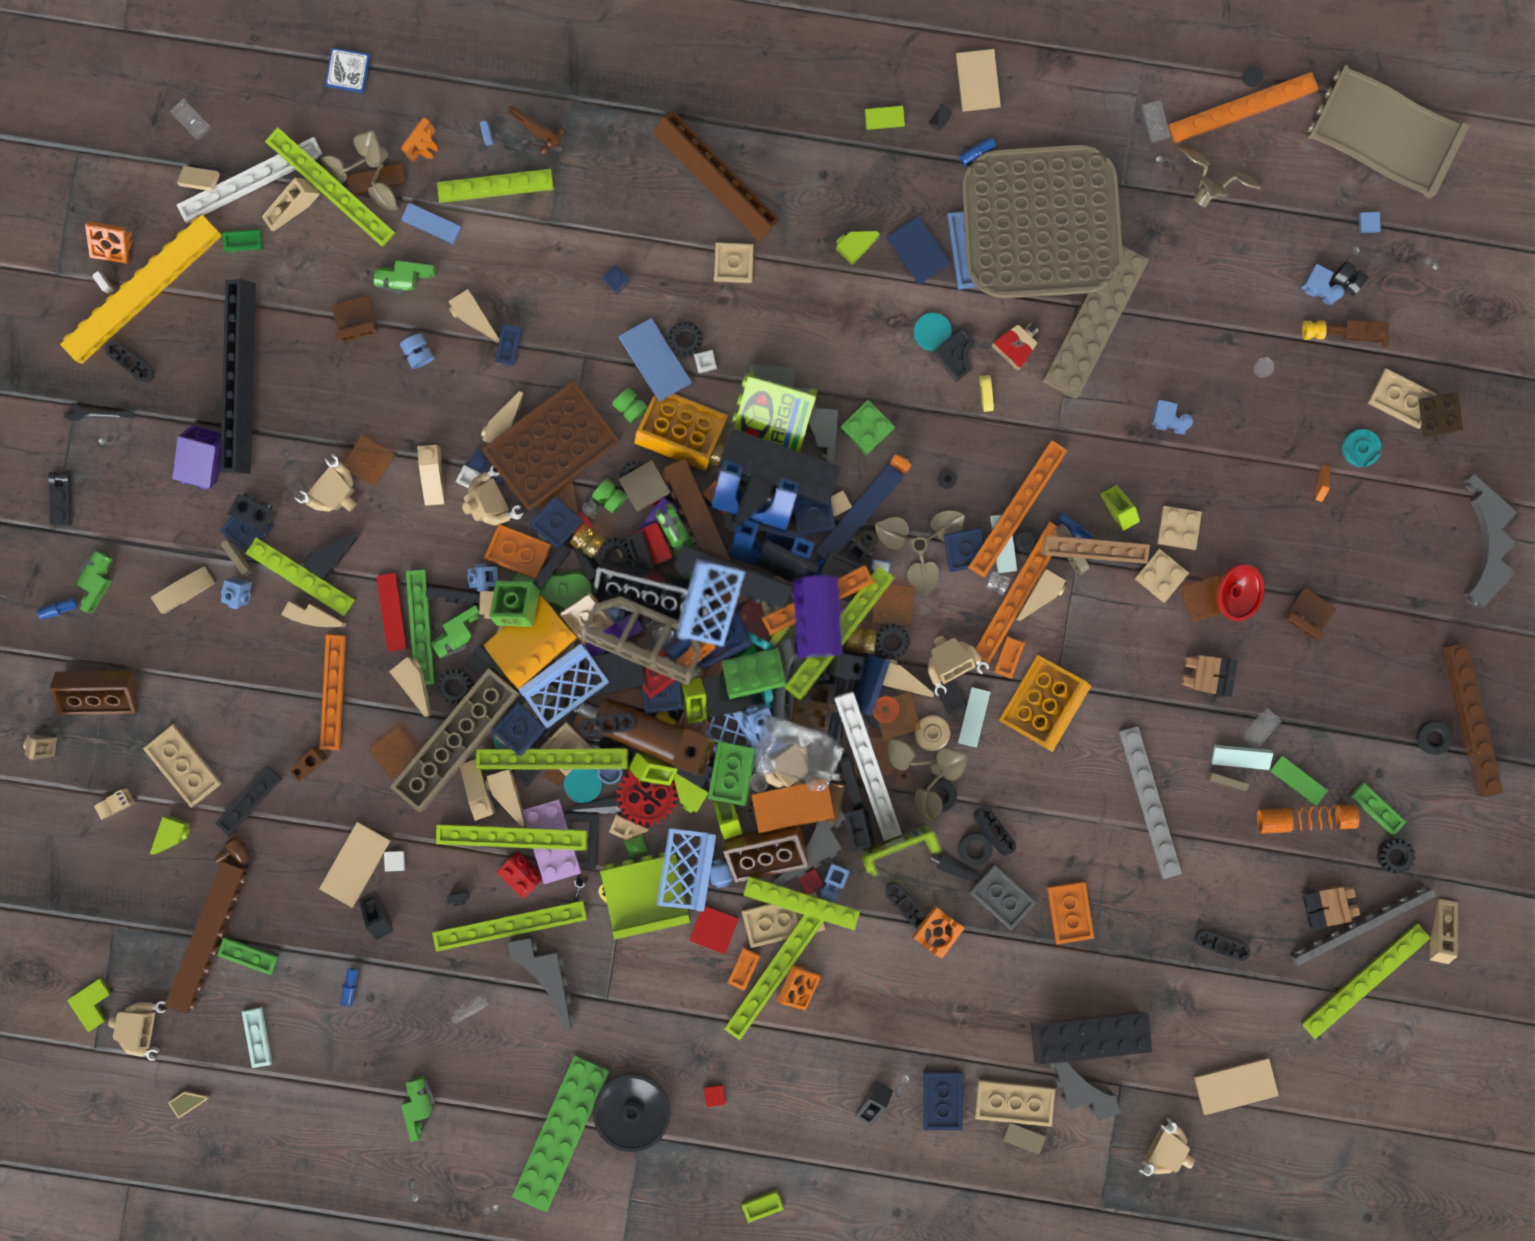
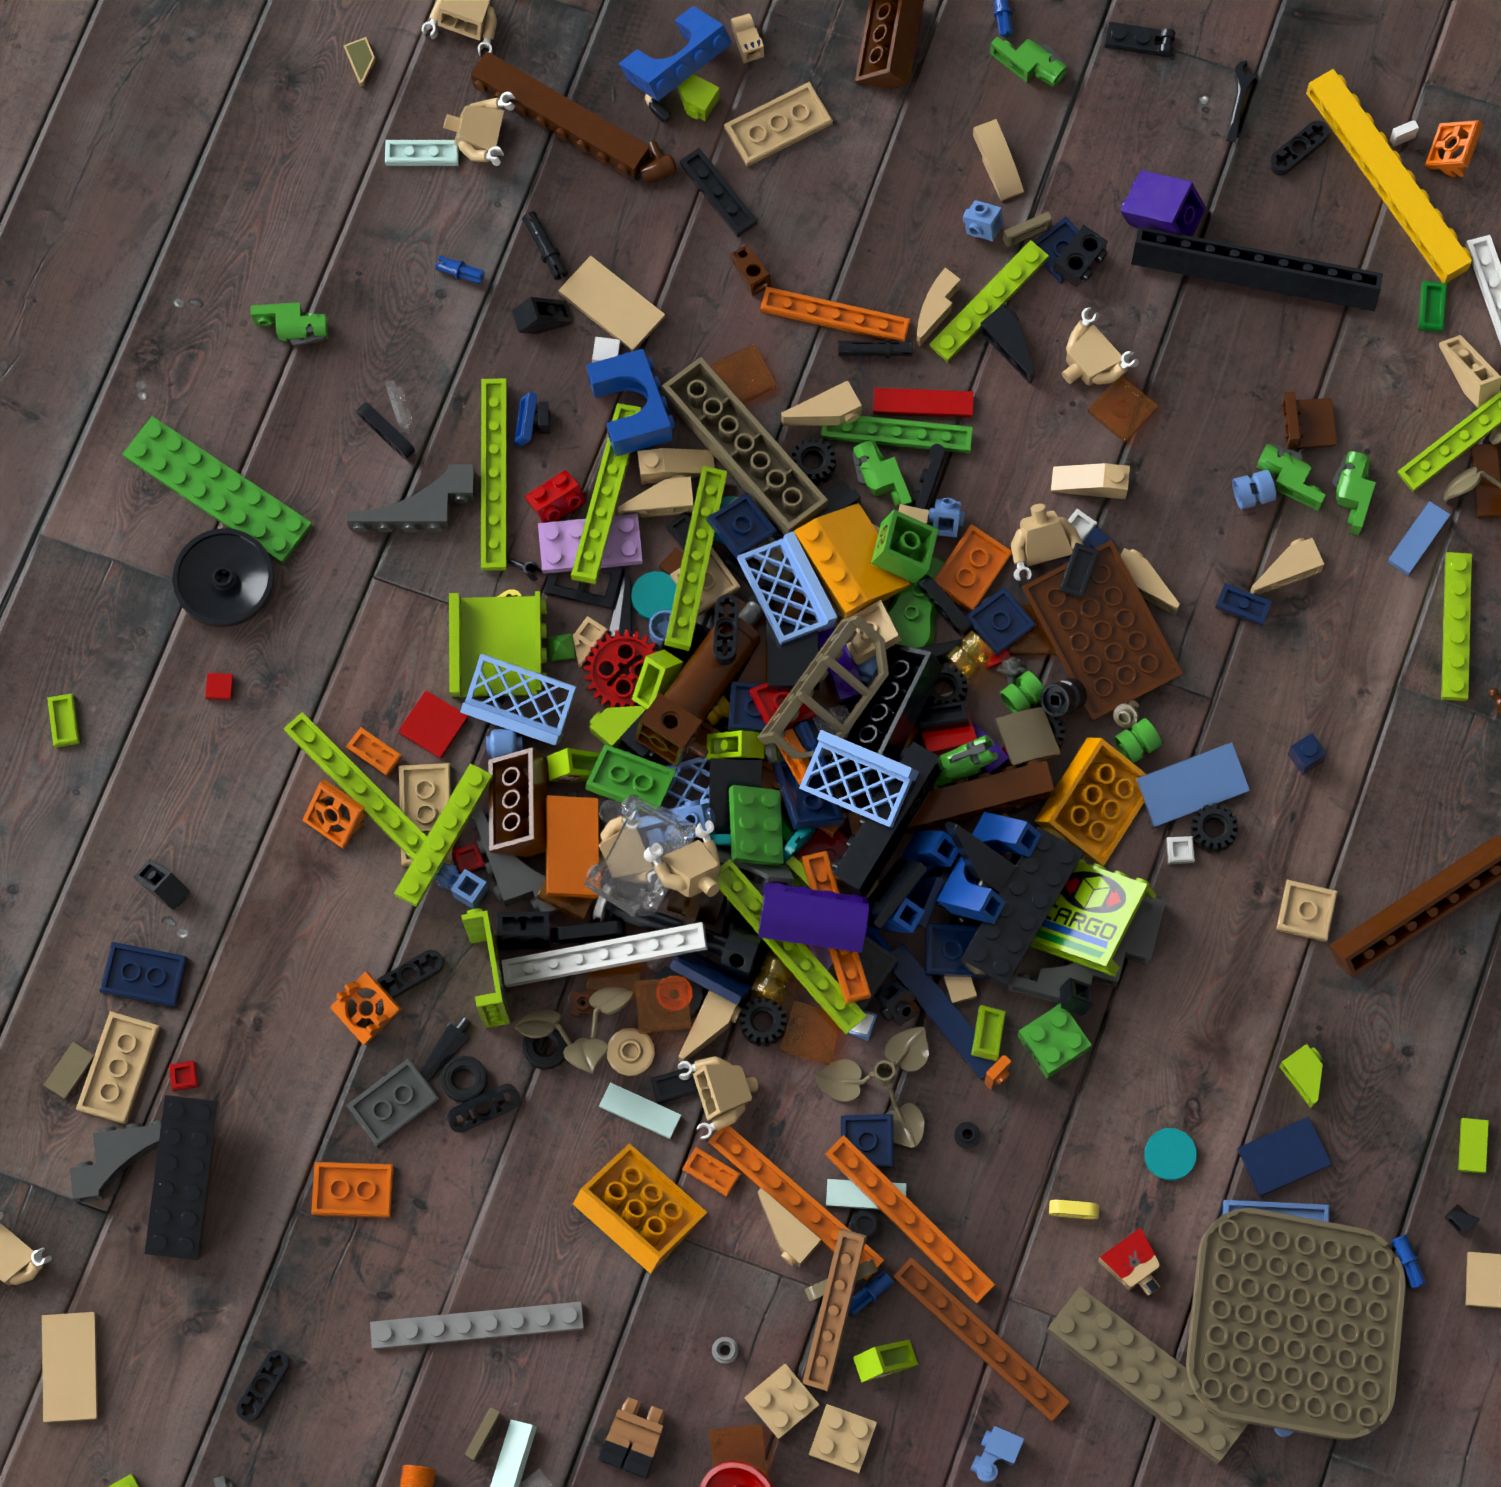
camera: 100 degrees right, 15 degrees down
(161, 862) = (661, 76): none -> blue arch
(185, 864) = (657, 108): none -> black arm
(230, 996) = (480, 128): none -> tan torso
(247, 955) = (525, 159): bright green tile -> none
(323, 921) = (549, 254): none -> black pin
(355, 657) = (875, 348): none -> black pin
(399, 325) = (1291, 475): none -> bright green plate
(410, 837) = (633, 373): none -> blue arch
(461, 911) = (525, 419): none -> blue tile
(490, 1015) = (385, 430): none -> black beam
(510, 469) = (1079, 570): none -> black tile
(608, 465) = (1063, 697): none -> black wheel
(611, 416) = (1126, 714): none -> dark tan plate
(801, 714) = (690, 868): none -> tan torso
(835, 416) = (1076, 996): none -> black slope
(870, 476) = (988, 1033): none -> lime tile
(954, 354) = (1134, 1176): black tile -> none
(997, 583) = (814, 1175): clear wheel -> none
(1011, 1053) = (183, 1075): none -> red tile
(1091, 443) = (981, 1339): none -> dark orange plate
(1139, 620) = (718, 1344): none -> light grey plate

